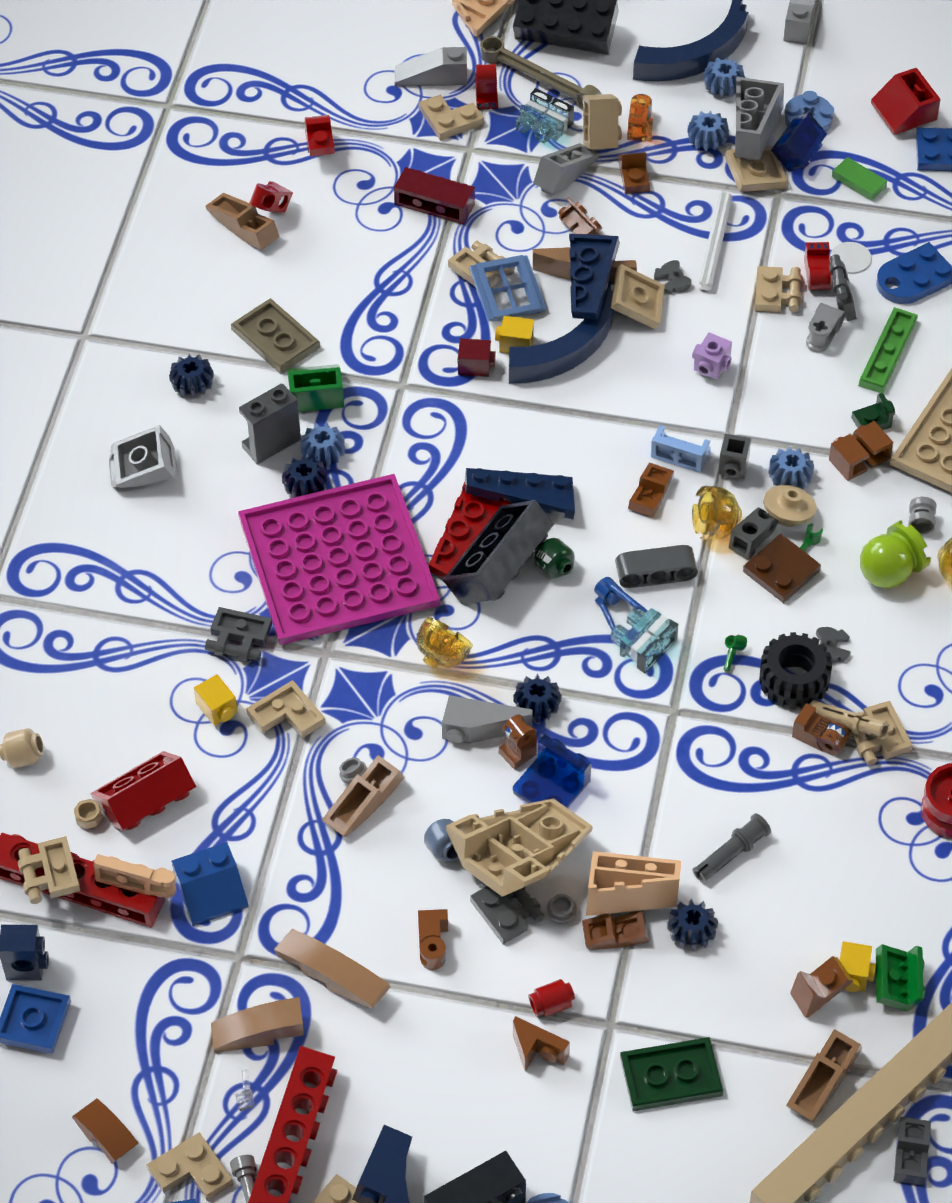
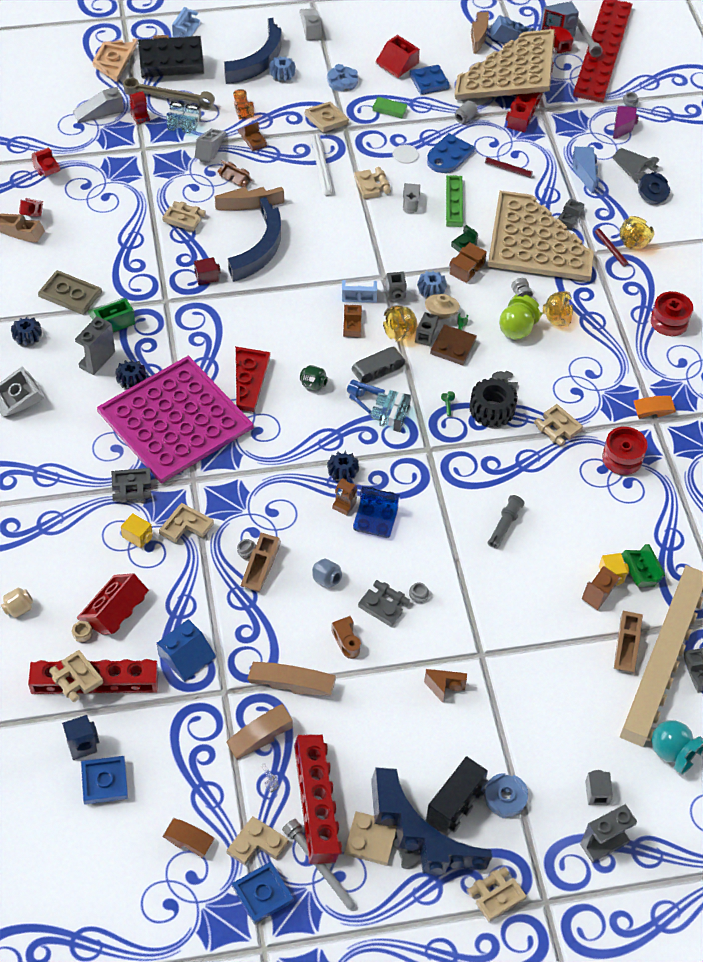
camera: 25 degrees left, 0 degrees up
(134, 876) = (137, 661): light nougat hinge -> none
(323, 443) = (133, 349): medium blue gear -> none
(434, 195) = (135, 180): dark red brick -> none
(441, 644) = (267, 451): clear yellow cylinder -> none
(449, 122) = (122, 135): tan plate -> none
(478, 720) = (312, 491): light grey slope -> none
(498, 552) = (279, 383): black brick -> none
(507, 288) = (208, 224): medium blue piece -> none
(514, 333) = (224, 249): yellow brick -> none
(517, 845) = (378, 561): tan wedge -> none
(549, 491) = (274, 341): dark blue wing -> none
(551, 998) = (440, 650): red brick -> none
(590, 271) = (258, 199): dark blue wing -> none
(601, 121) = (222, 110): tan brick -> none
(616, 932) = (457, 596): dark orange slope -> none
(631, 883) = (457, 561): light nougat wedge -> none
(637, 296) = (291, 207): tan plate -> none
(671, 1074) = (534, 673): dark green tile -> none
(676, 278) = (309, 193): dark grey piece -> none
(692, 924) = (504, 575): dark blue gear -> none
(708, 130) = (287, 101): medium blue gear -> none
(712, 356) = (354, 230): lavender brick -> none
(757, 113) = (312, 84): light grey wedge -> none
(799, 142) = (346, 94): clear blue brick -> none
(817, 265) = (390, 162): red leg -> none
(819, 731) = (524, 435): dark orange leg -> none
(842, 287) = (413, 170): dark grey plate -> none
(858, 722) = (539, 421): tan pin -> none

